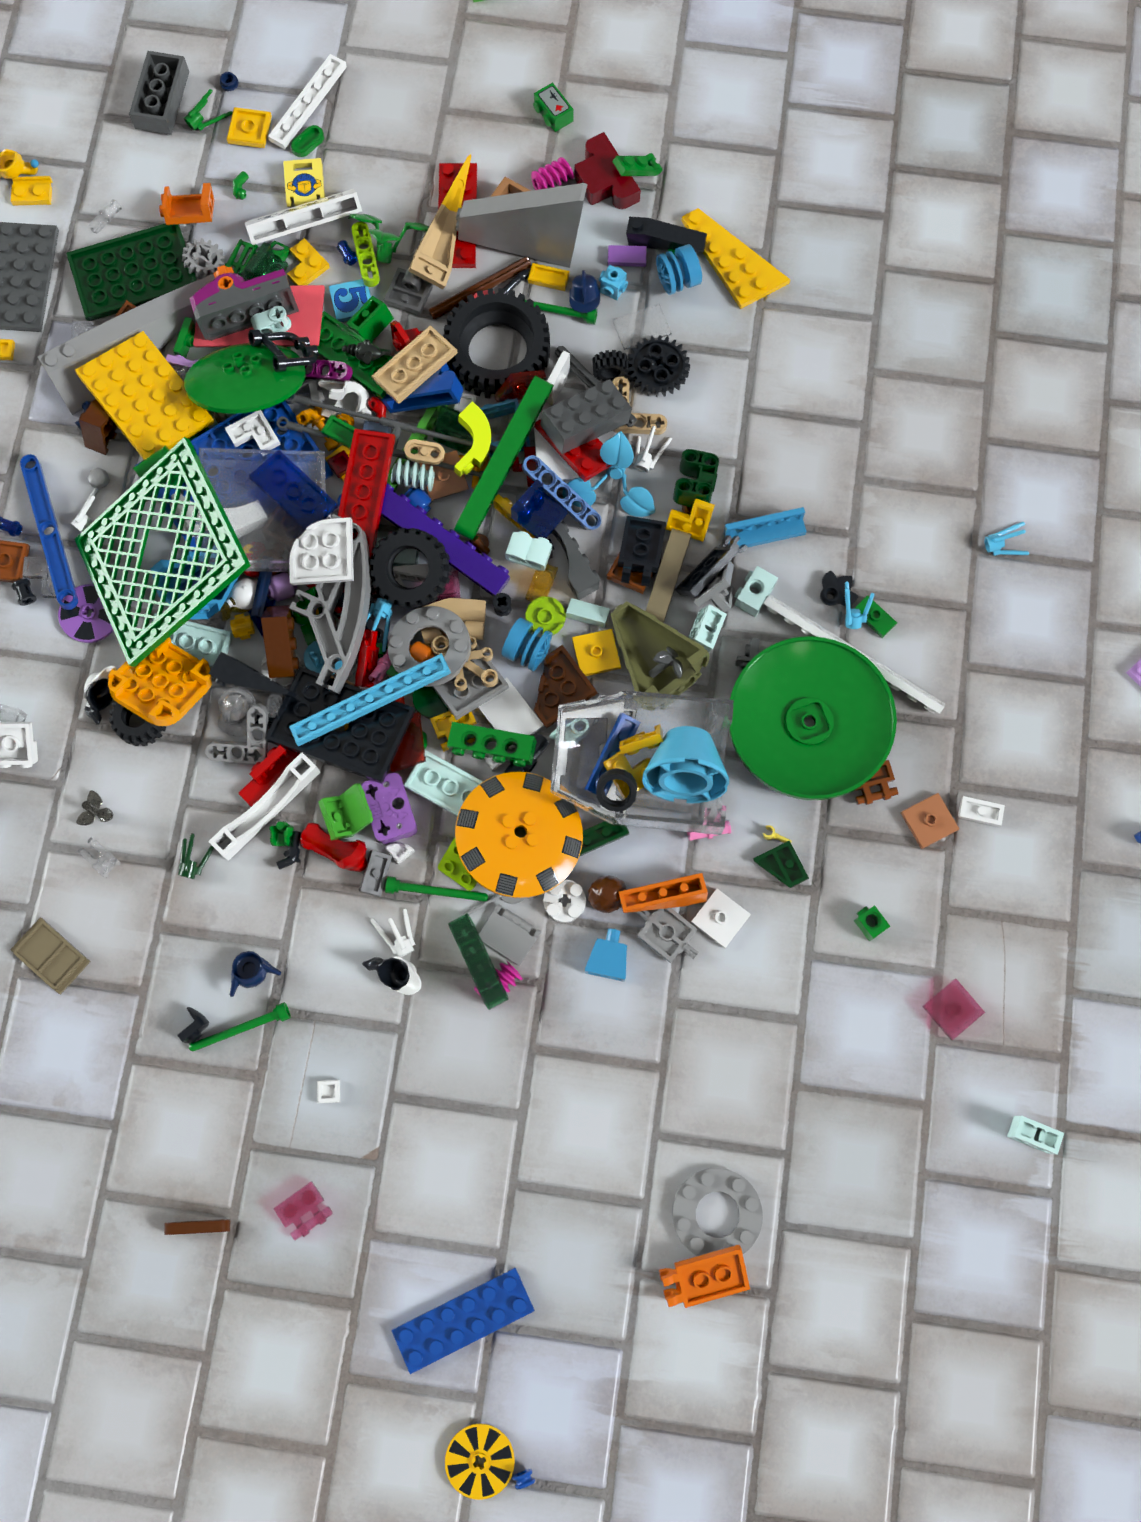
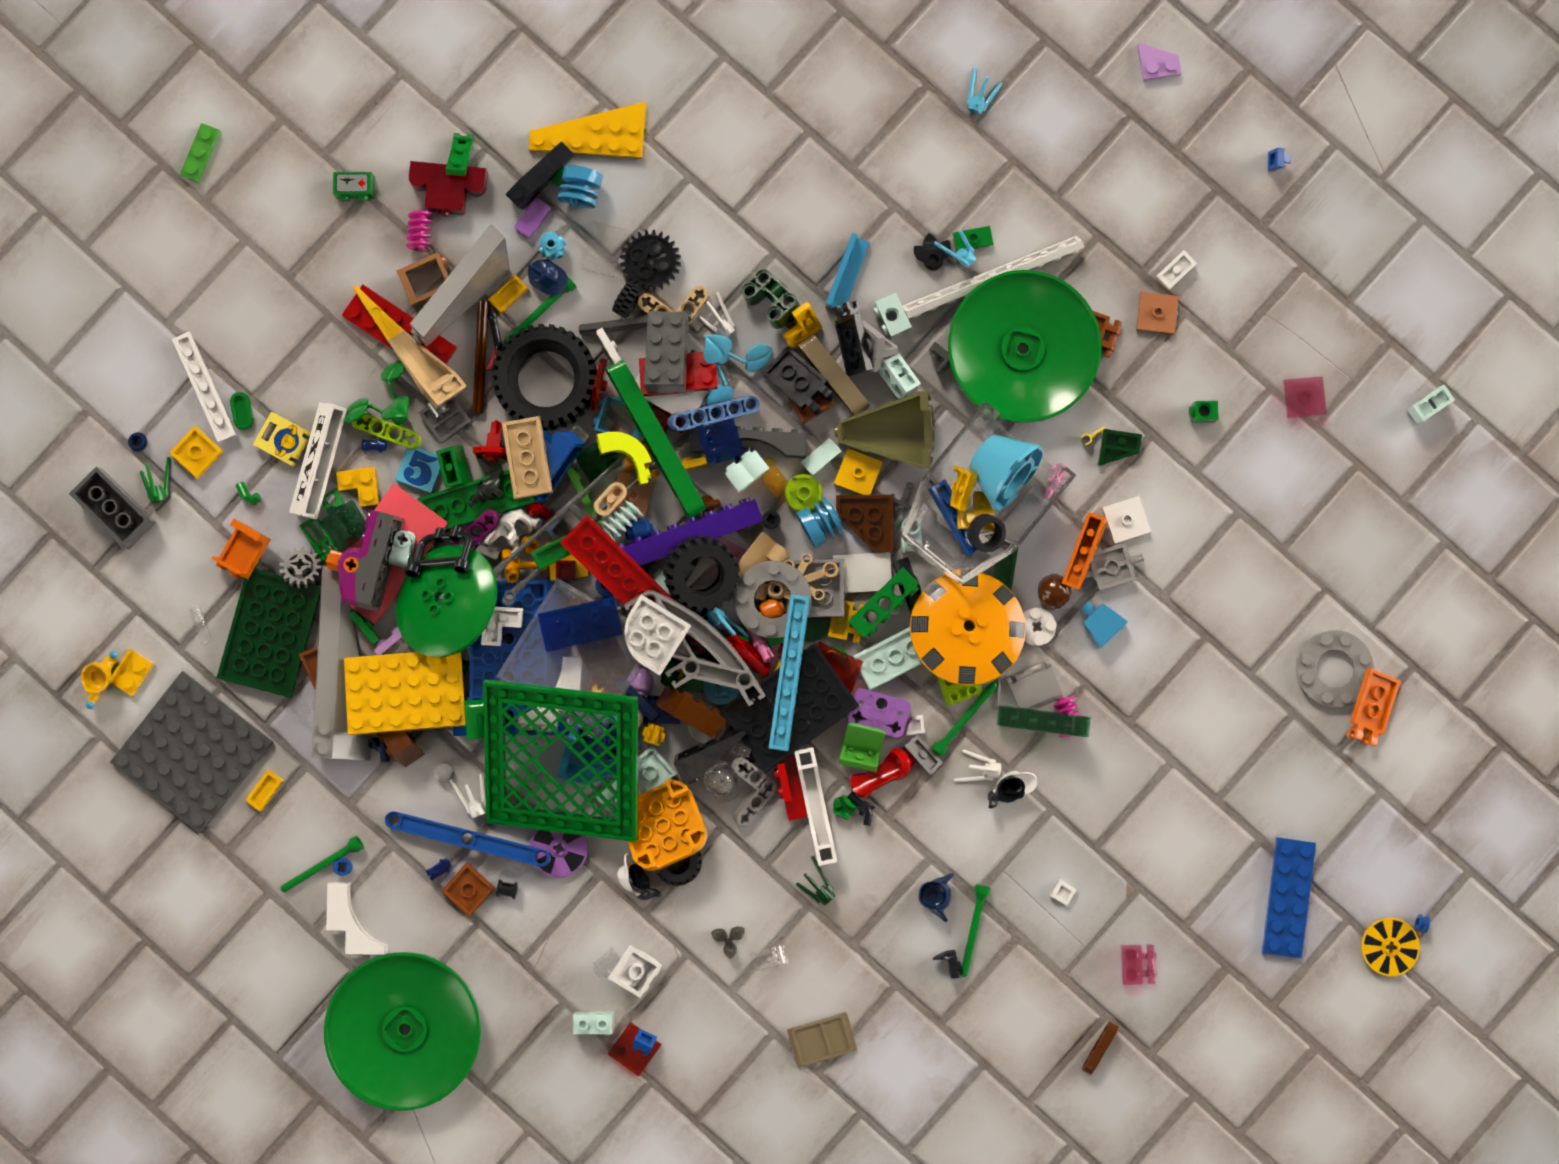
camera: 55 degrees left, 10 degrees up
(665, 660) = (907, 424): dark grey plant -> none

